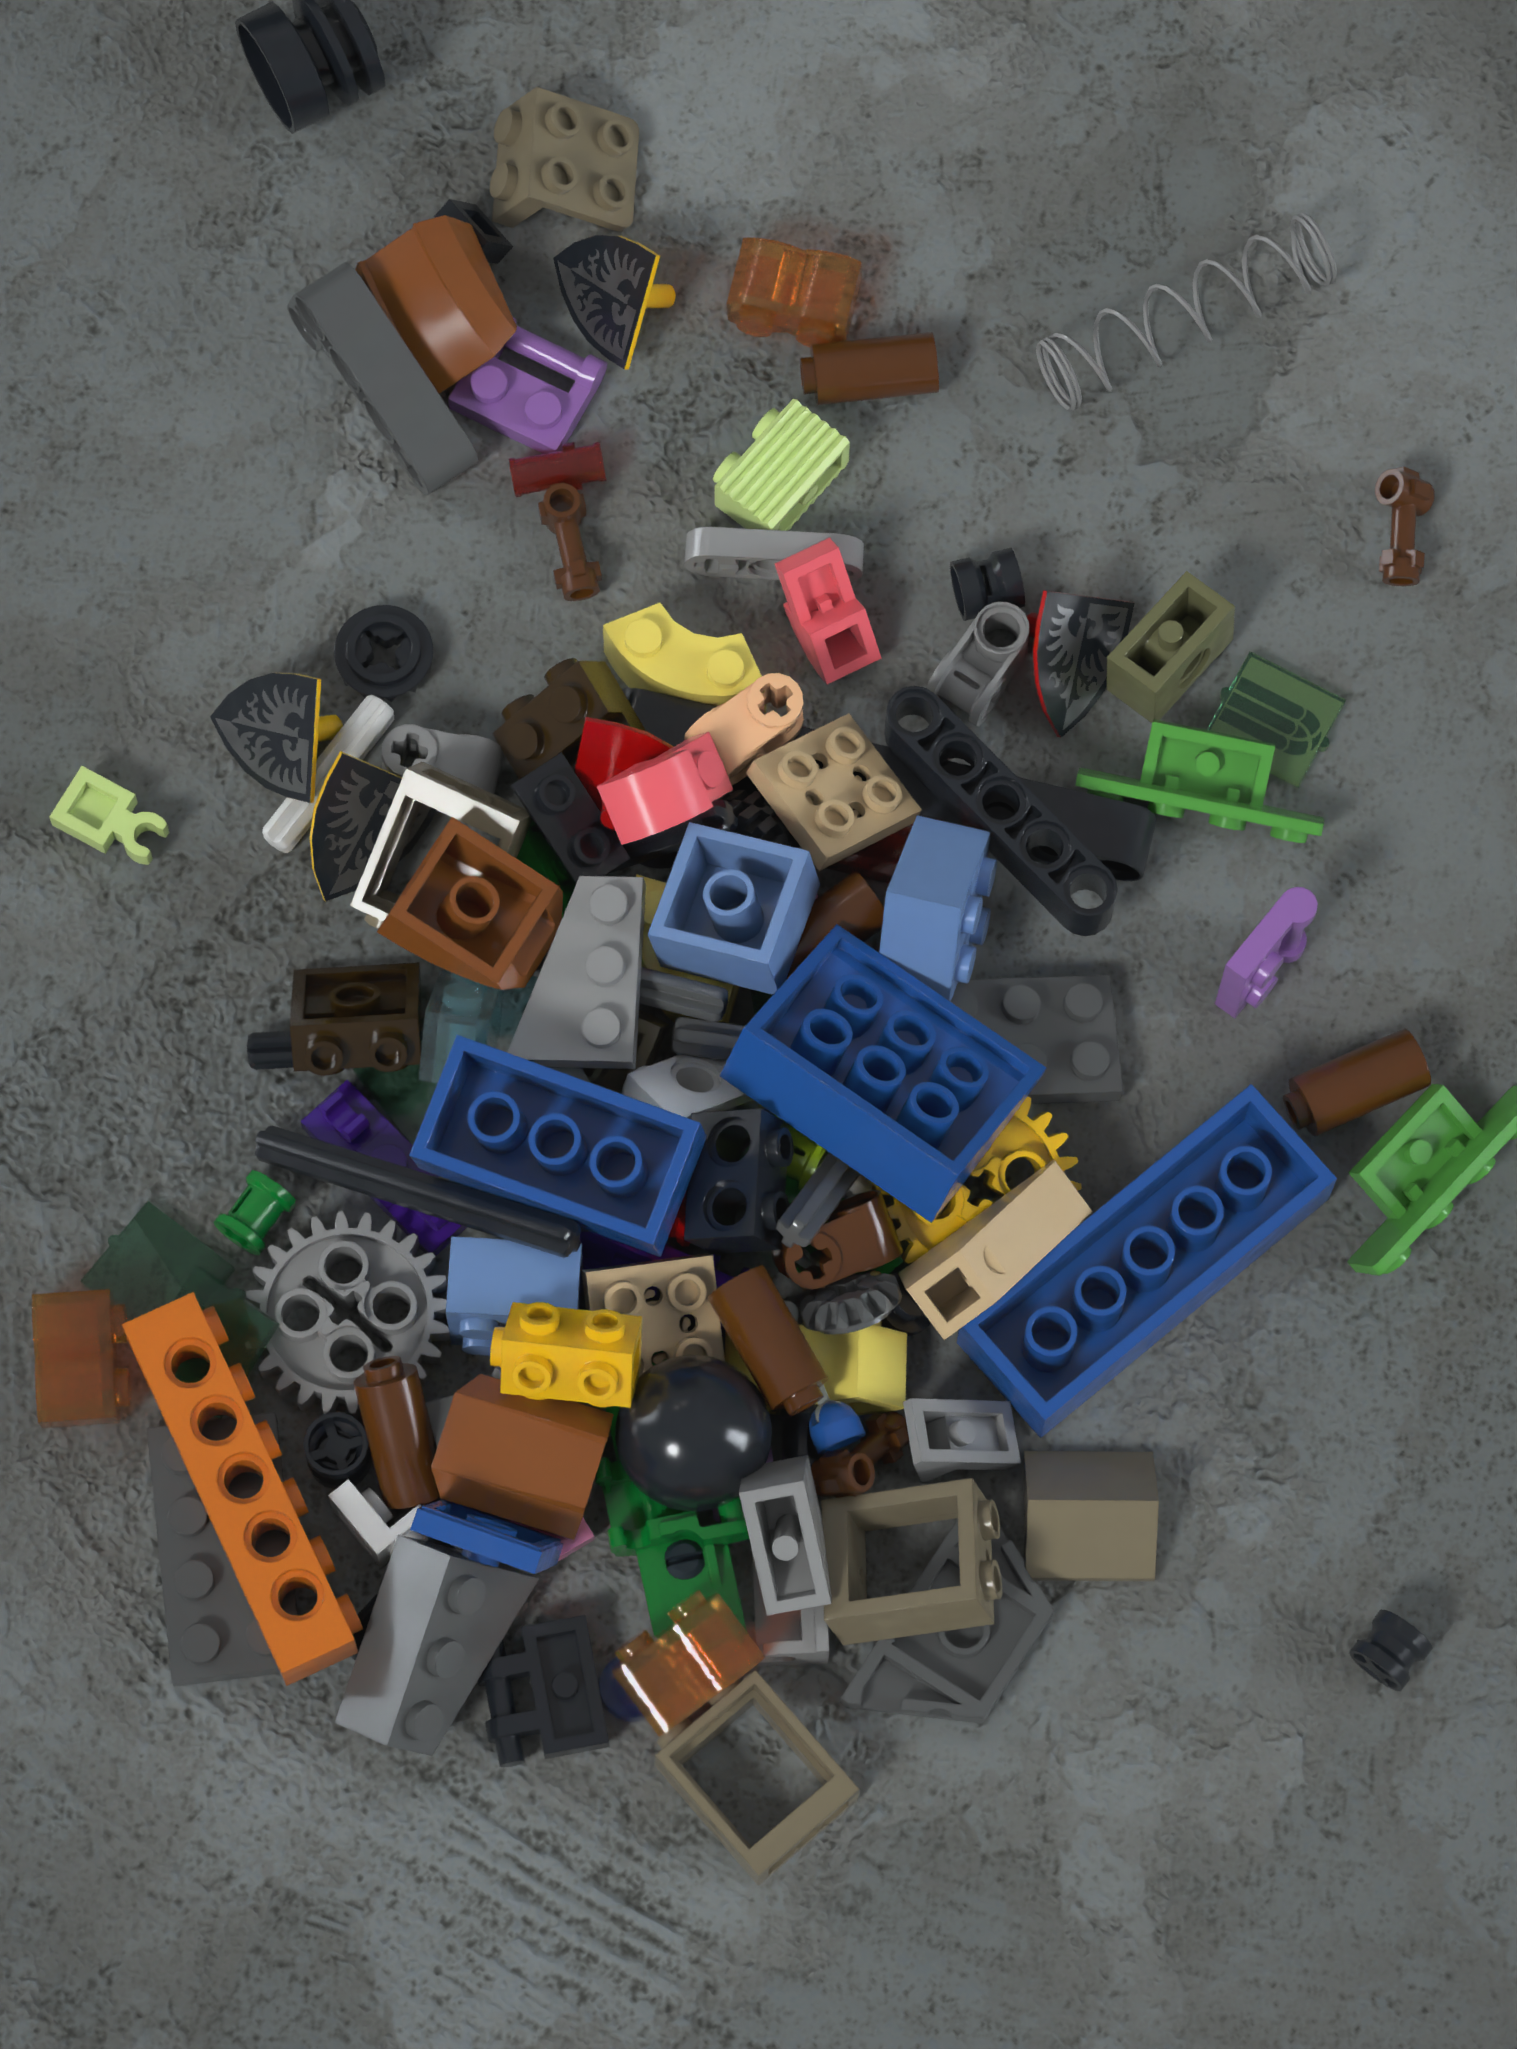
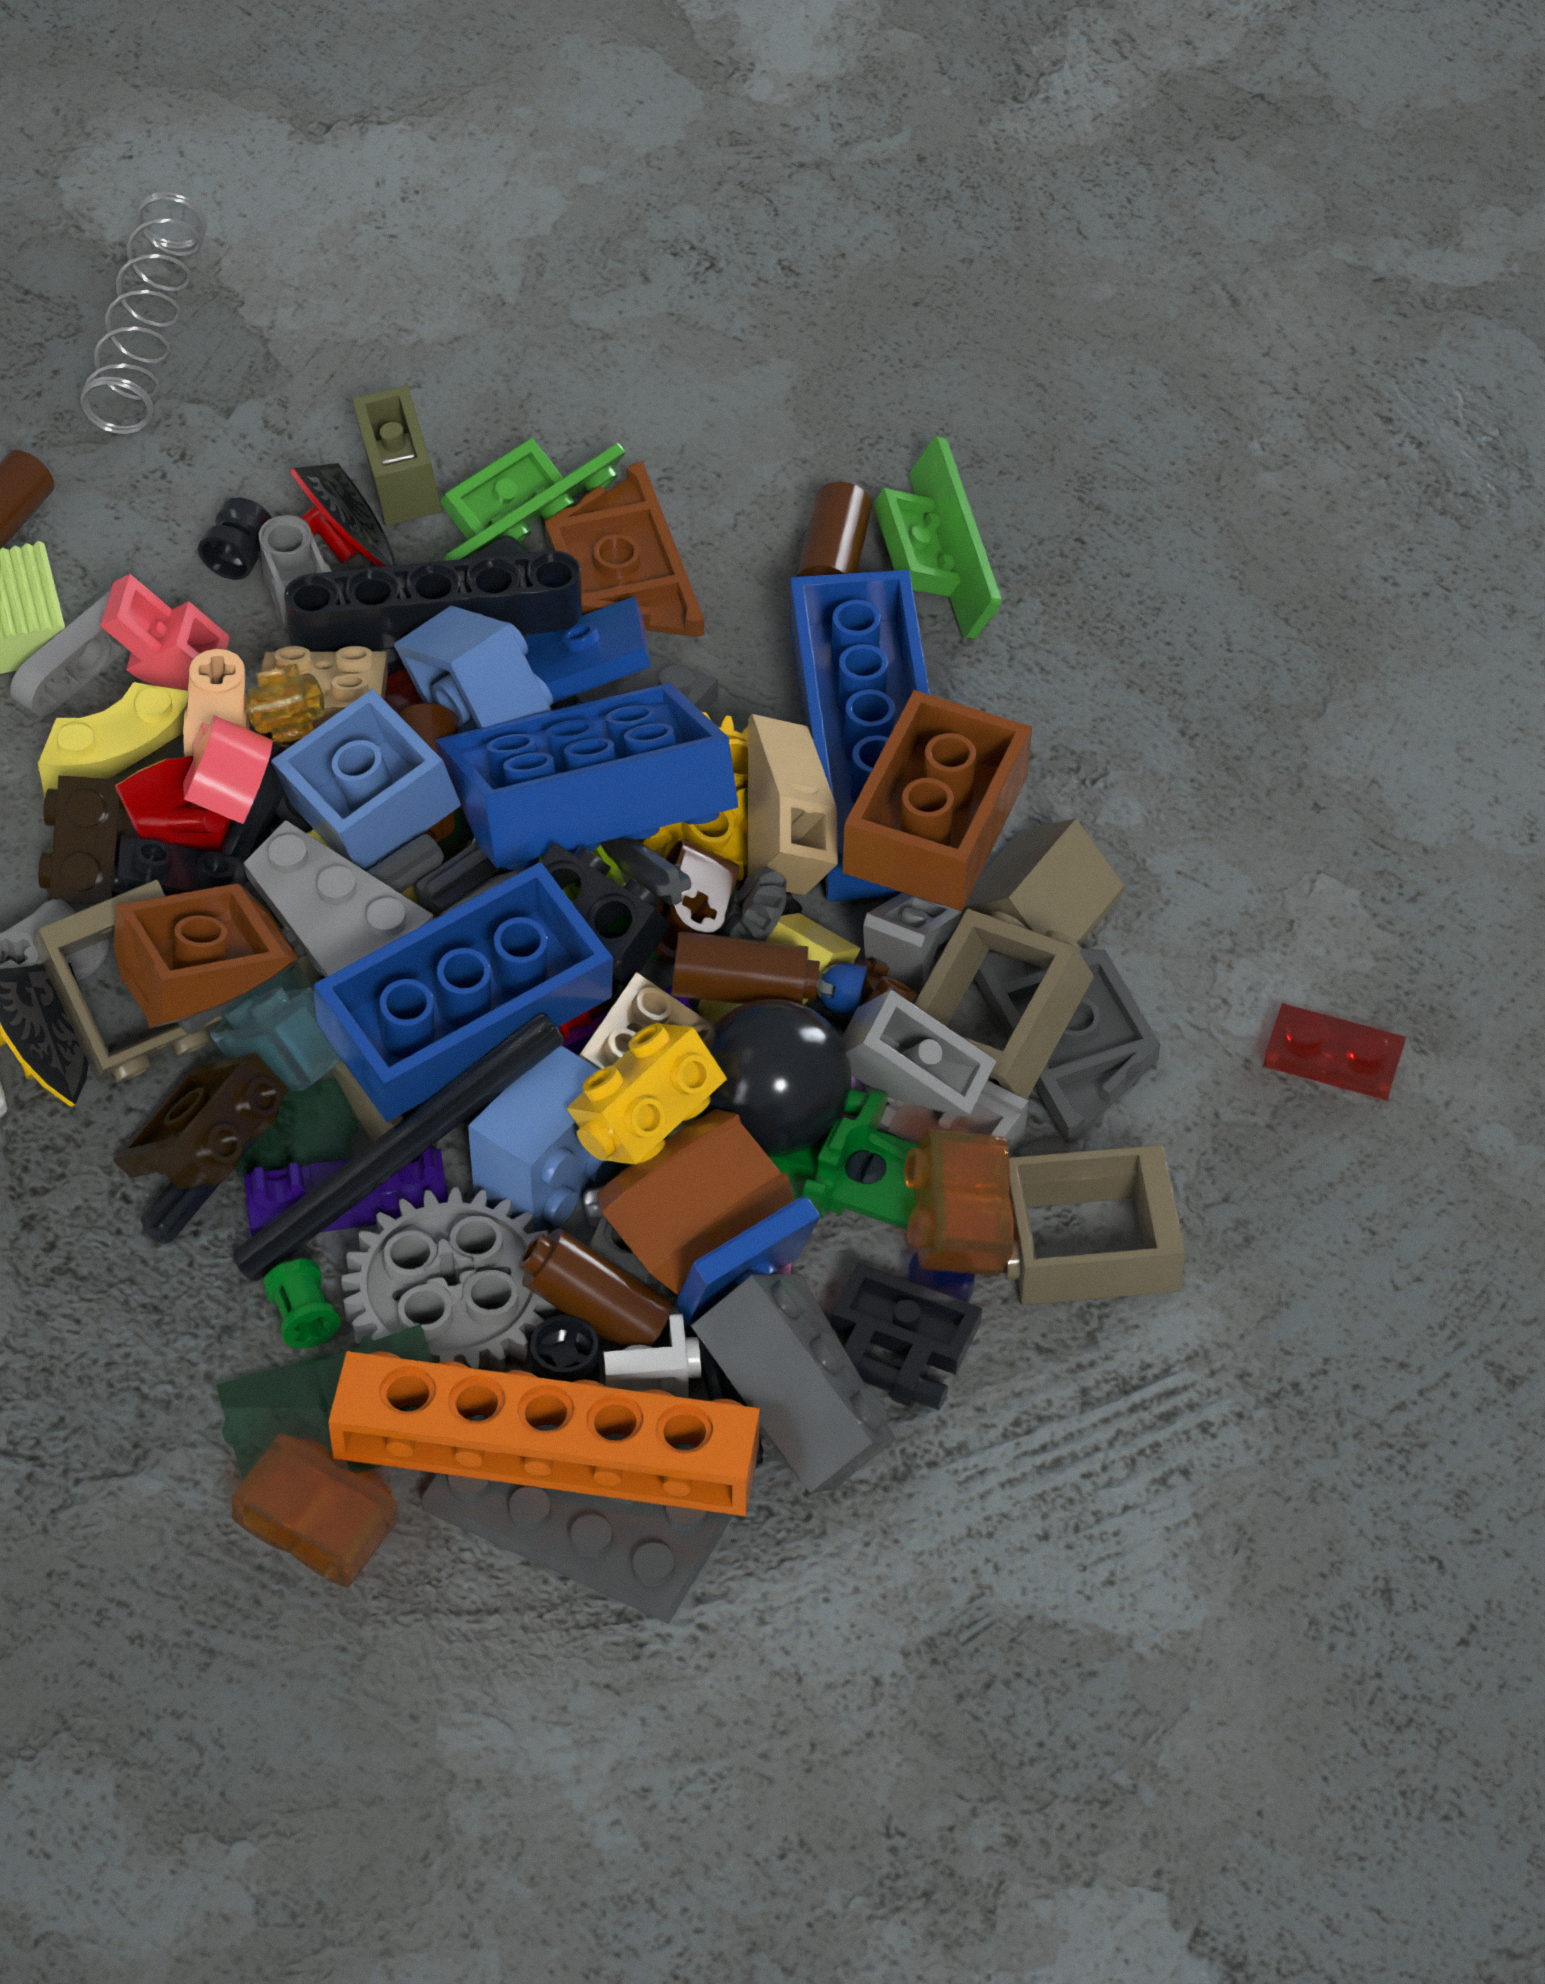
camera: 55 degrees left, 20 degrees down
(757, 788) = (285, 703): none -> clear yellow gear
(1050, 1382) = (936, 800): none -> dark orange brick
(1061, 973) = (592, 652): none -> blue plate
(1097, 1866) = (1334, 1051): none -> clear red plate
(1203, 910) = (628, 553): none -> dark orange wing
(1274, 941) = (693, 521): medium lavender plate -> none
(1281, 710) = (491, 436): clear green piece -> none
(1390, 1650) = (1300, 767): black wheel -> none
(1409, 498) = (411, 278): reddish brown bar -> none

